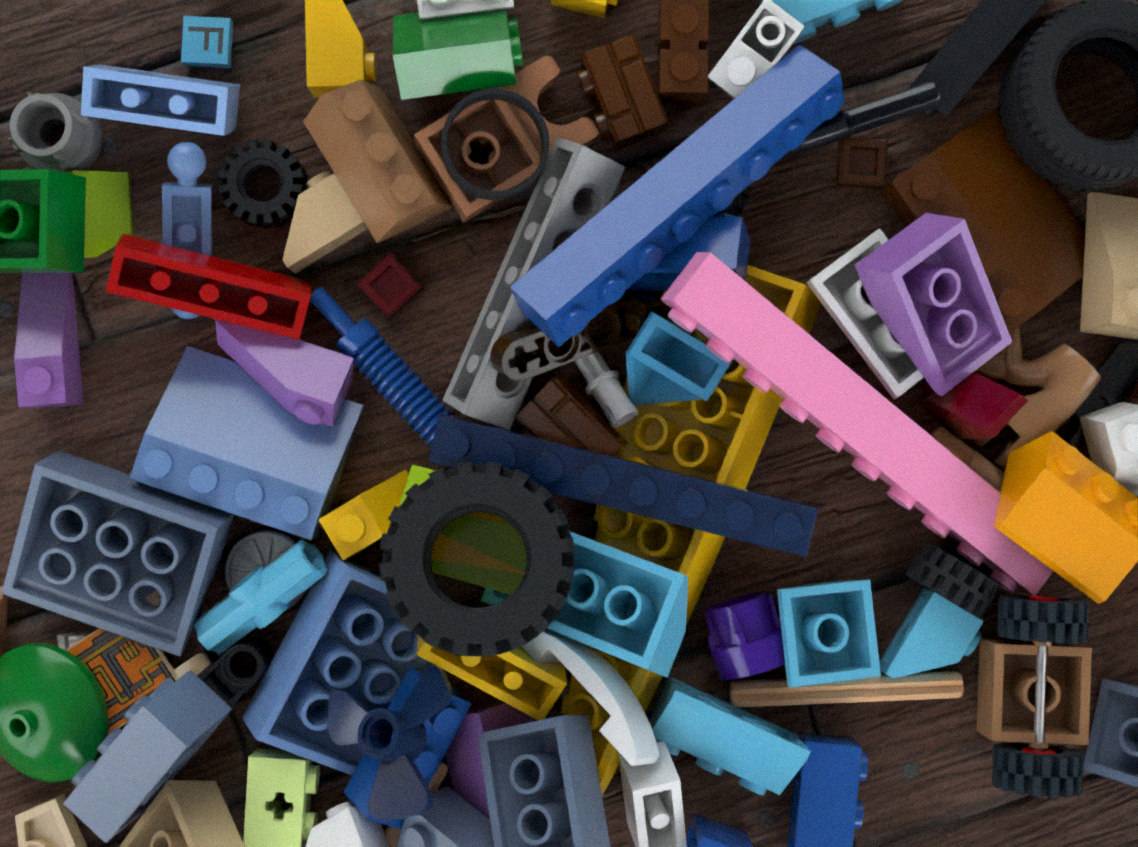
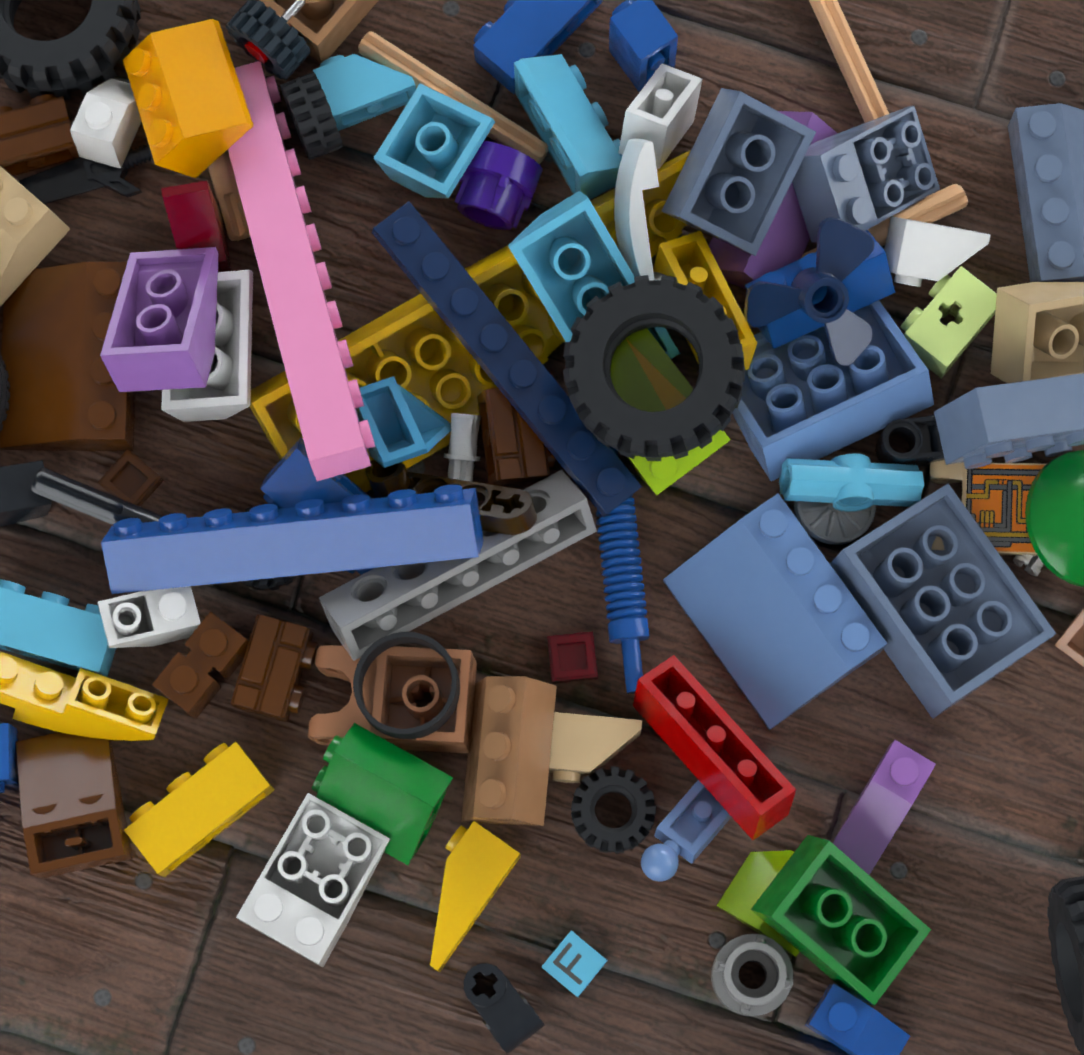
camera: 145 degrees left, 10 degrees down
(160, 99) = (644, 933): light blue brick -> none
(294, 372) = (699, 637): medium lavender slope -> none
(365, 517) = (720, 486): yellow slope -> none
(1065, 385) = (115, 195): medium nougat piece -> none

